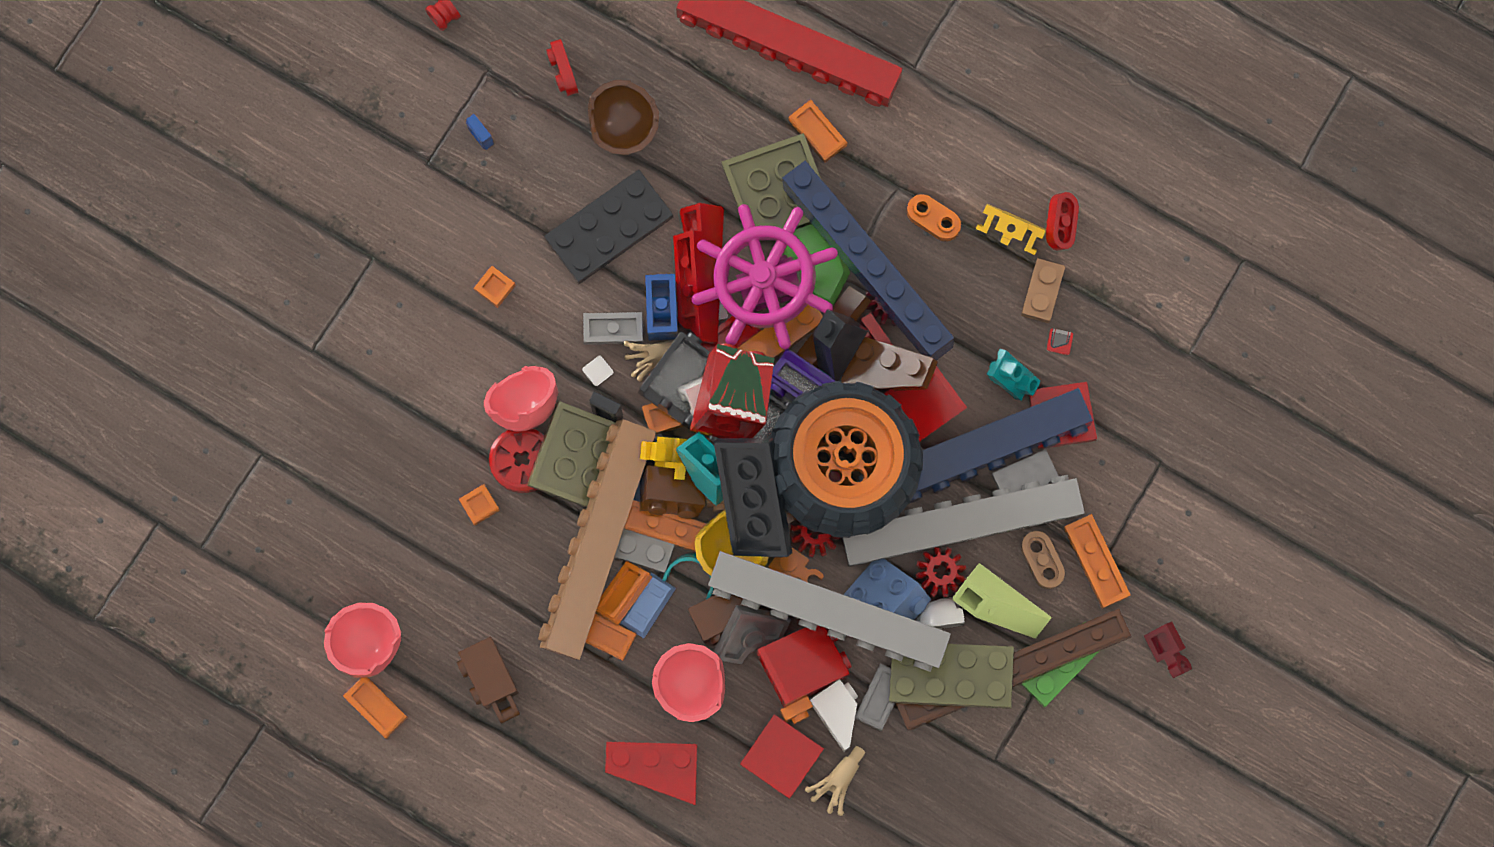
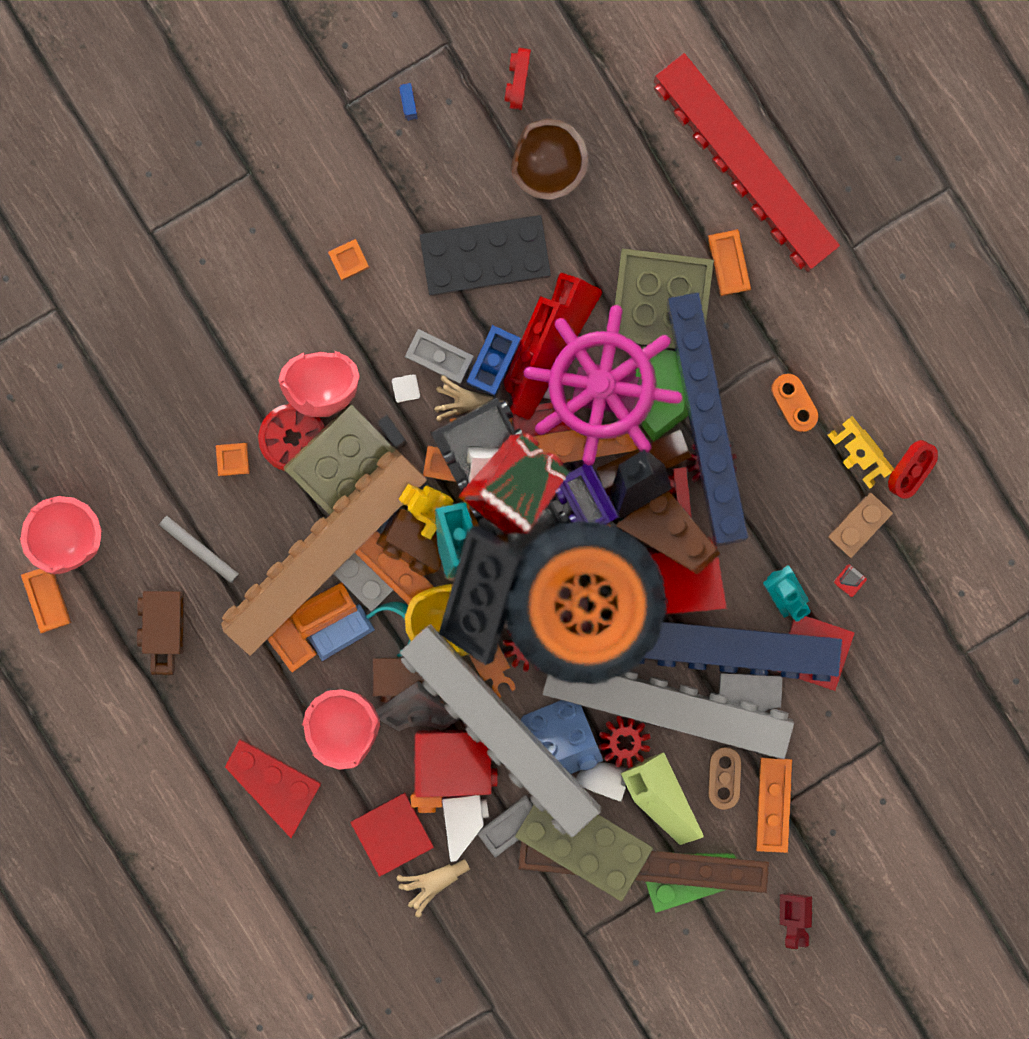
camera: 25 degrees right, 10 degrees up
(488, 596) = (198, 549): none -> light grey bar

